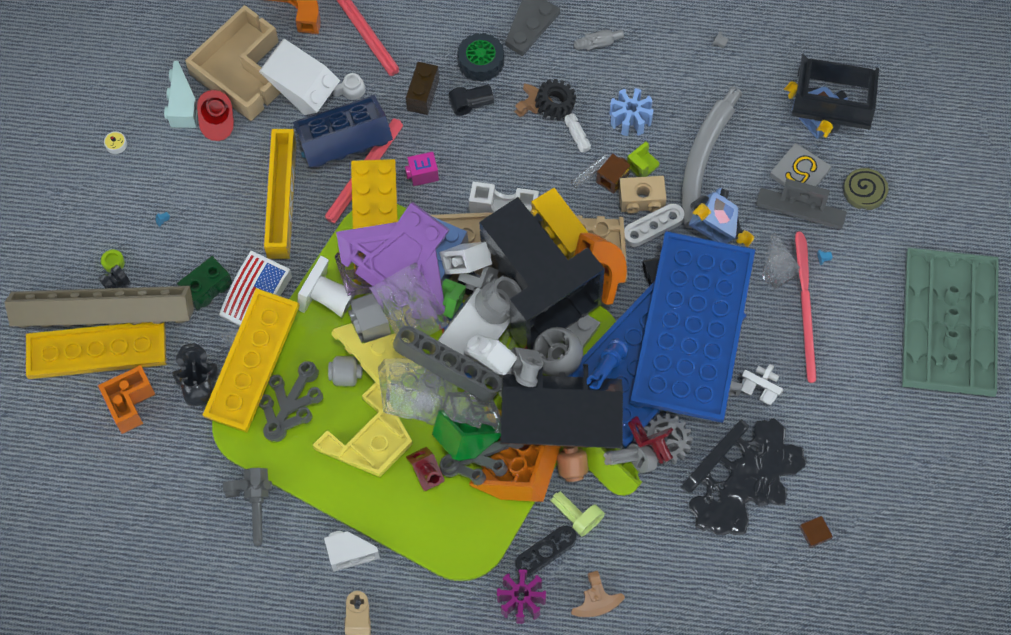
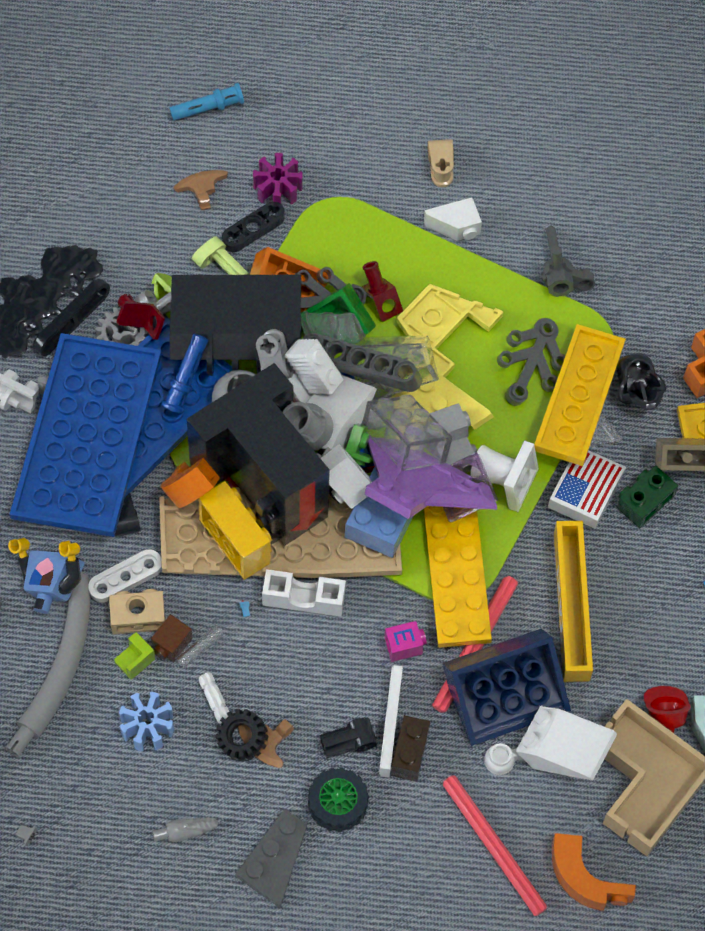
camera: 175 degrees right, 0 degrees up
(344, 371) = (478, 387): light grey head -> none
(436, 110) = (390, 721): none -> white tile

